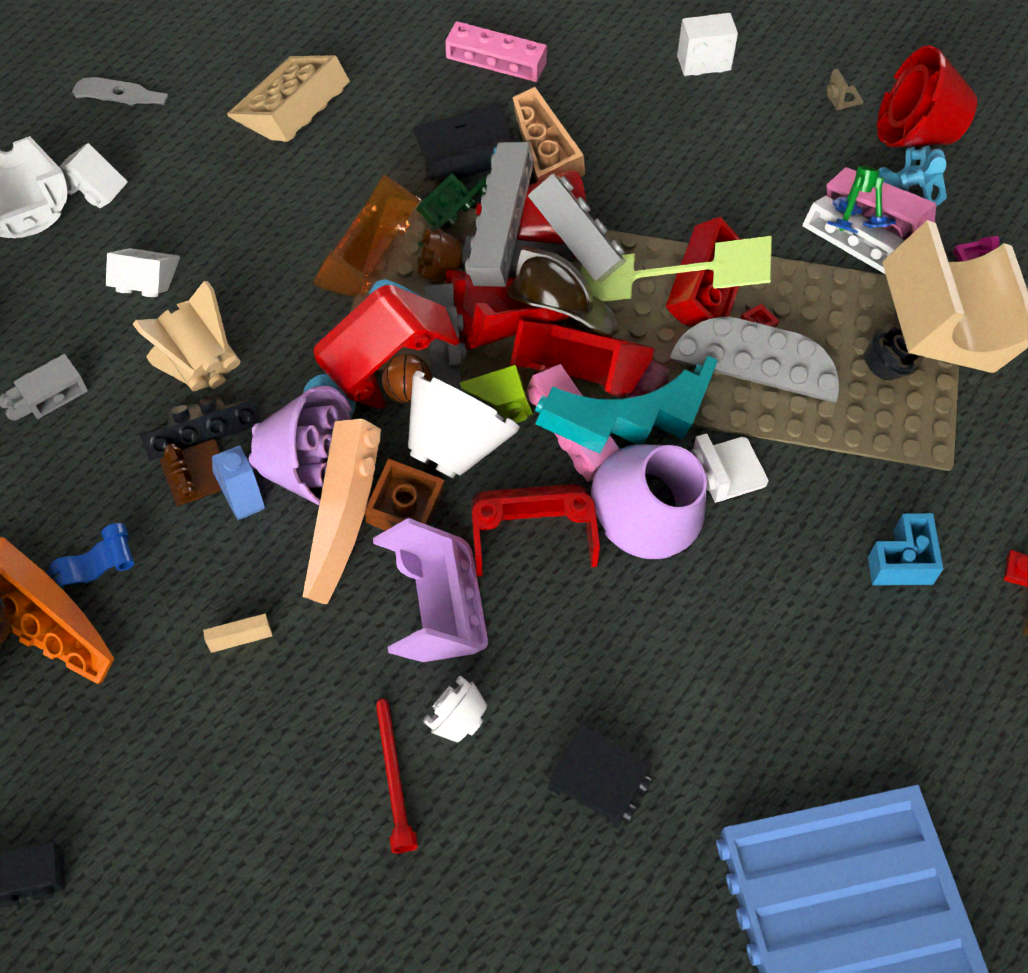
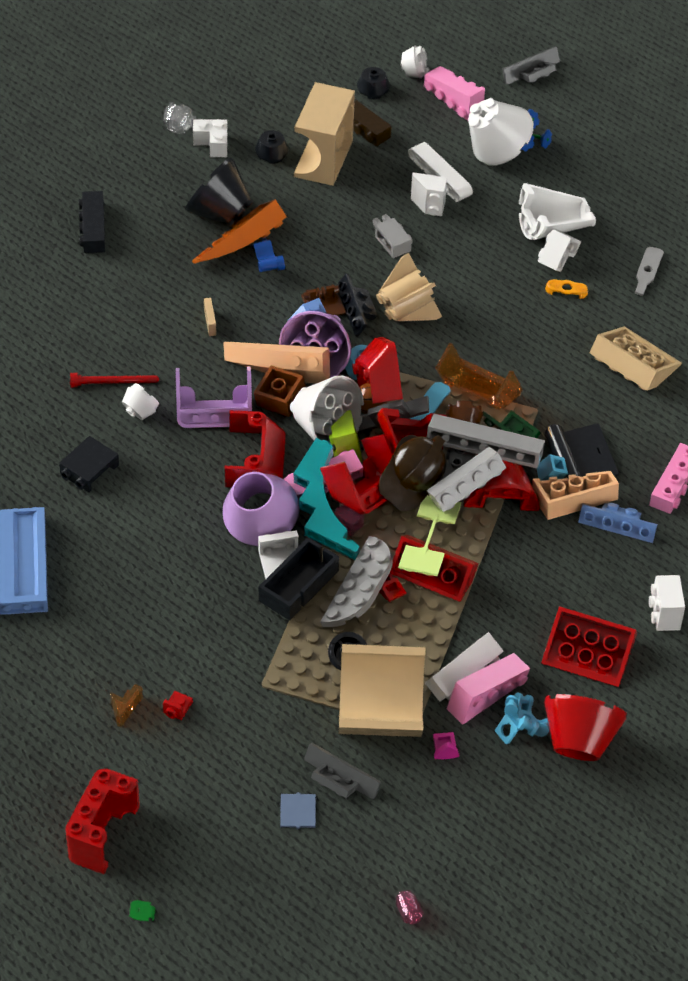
camera: 95 degrees right, 10 degrees down
(140, 271) = (481, 278): white slope -> none
(154, 187) = (577, 288): none -> light orange piece
(573, 99) = (618, 520): none -> medium blue bracket
(780, 426) = (298, 578): none -> black piece
(782, 121) = (589, 646): none -> red slope
(837, 90) = (618, 688): dark tan bracket -> none
(865, 180) = (487, 651): plant -> none
(913, 555) = (196, 637): dark azure brick -> none

